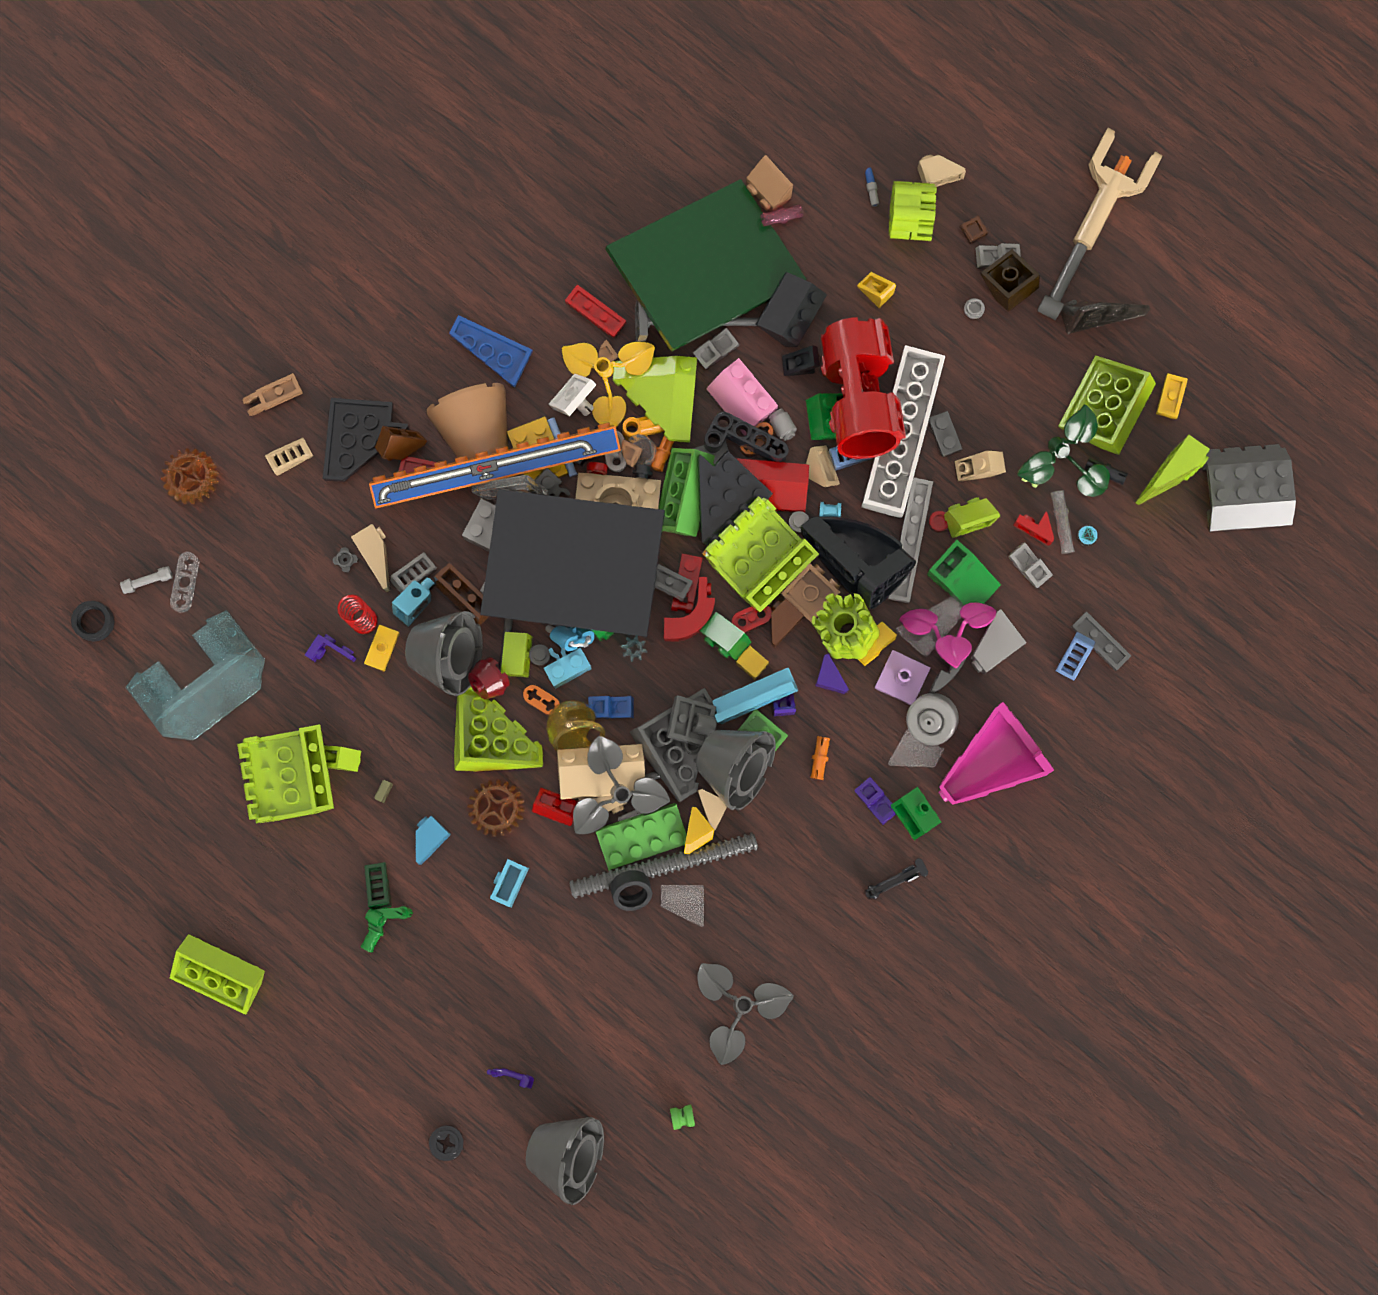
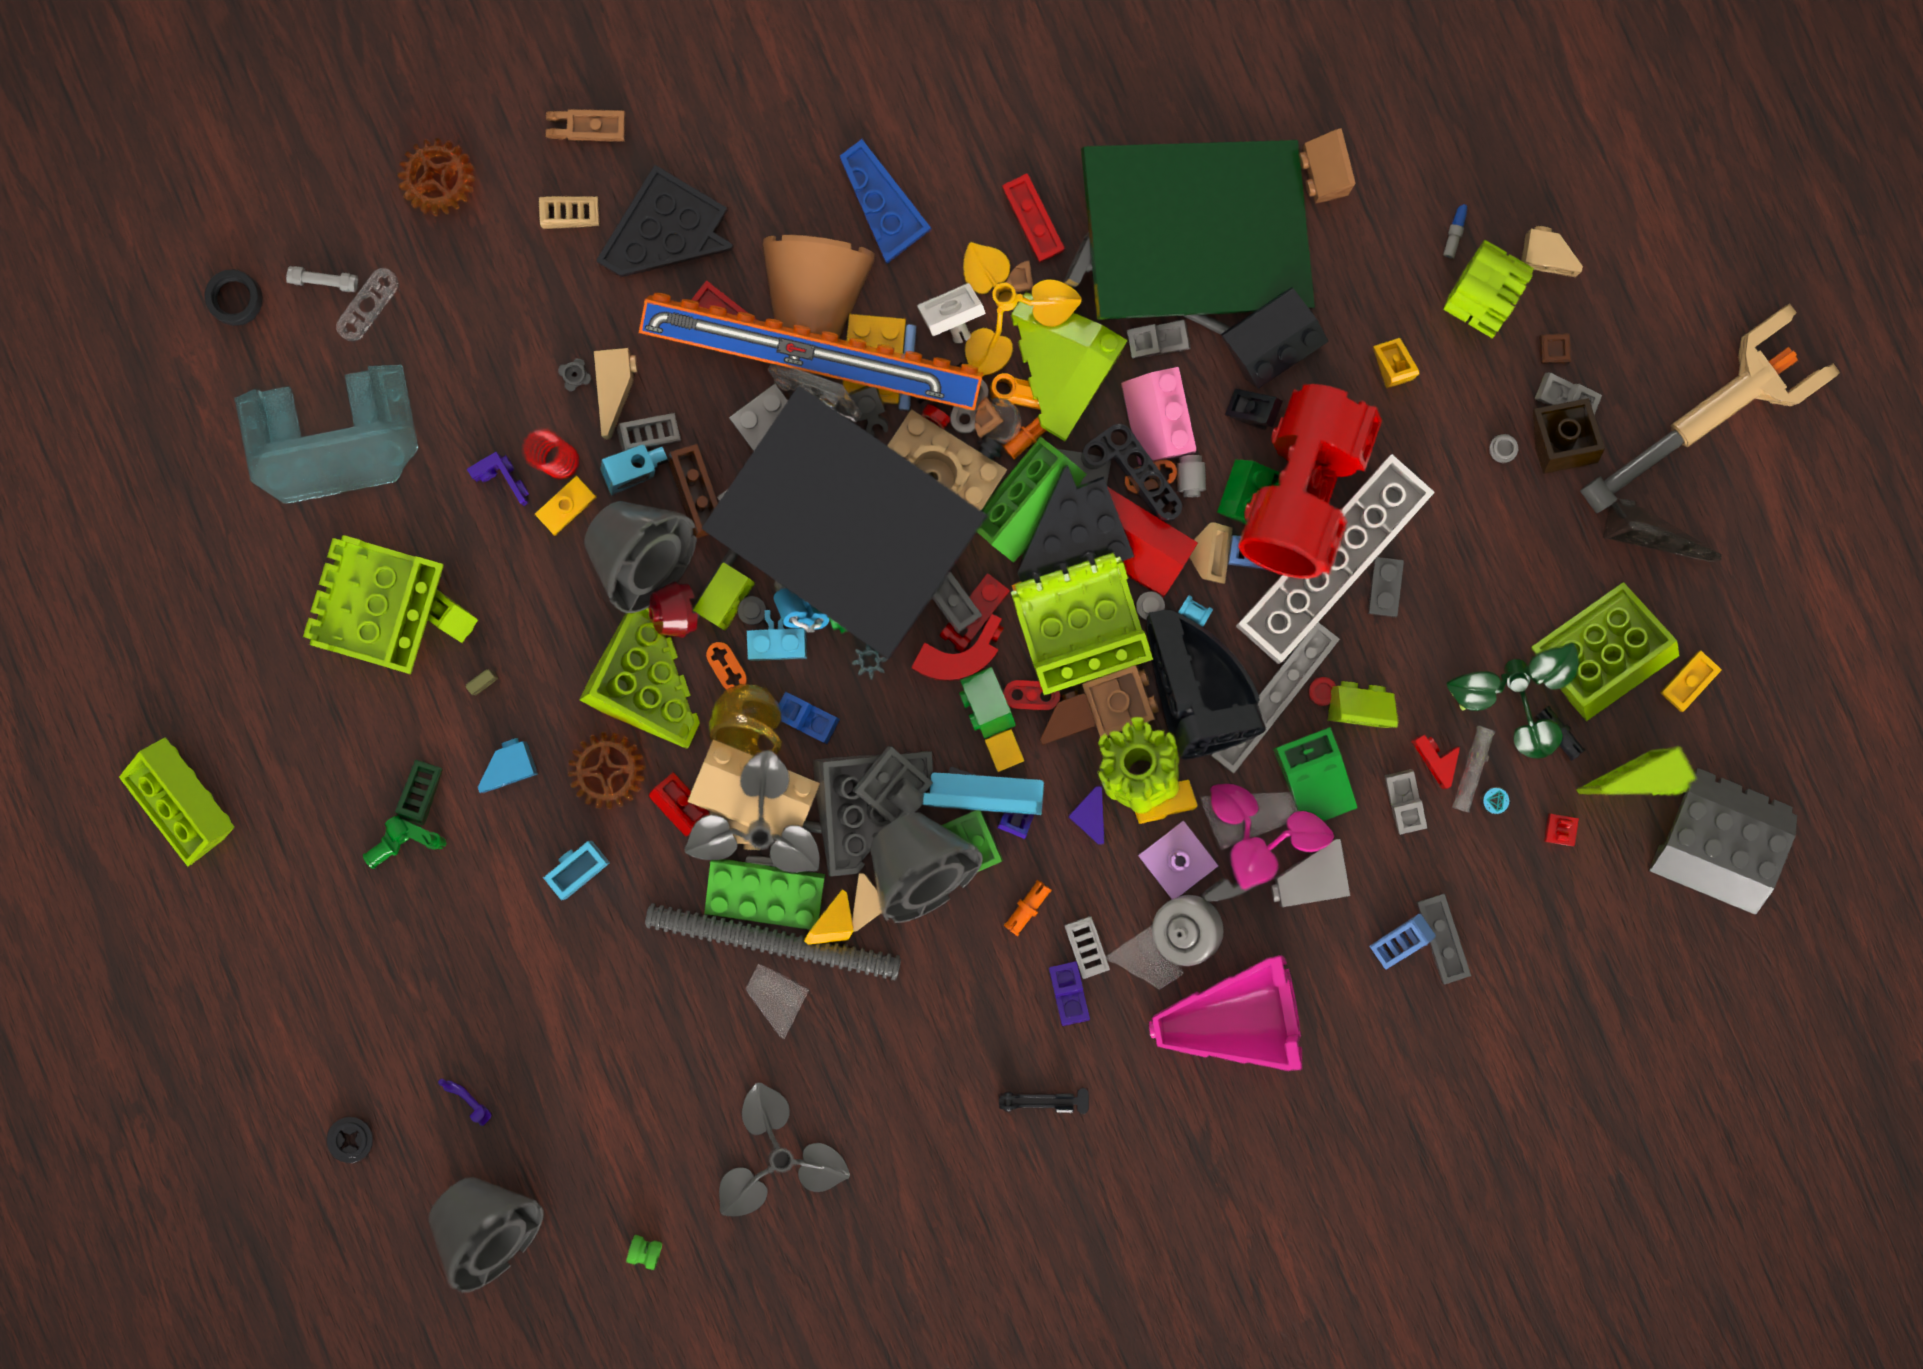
camera: 30 degrees right, 5 degrees up
(398, 443) = (709, 263): reddish brown slope -> none
(632, 902) = (721, 939): black tyre -> none
(782, 215) = (1324, 212): clear pink pin -> none
(865, 747) = (1080, 924): none -> light grey slope
(915, 813) = (1108, 1034): green brick -> none
(980, 466) = (1408, 649): tan slope -> none
(1139, 533) = (1561, 830): none -> red tile

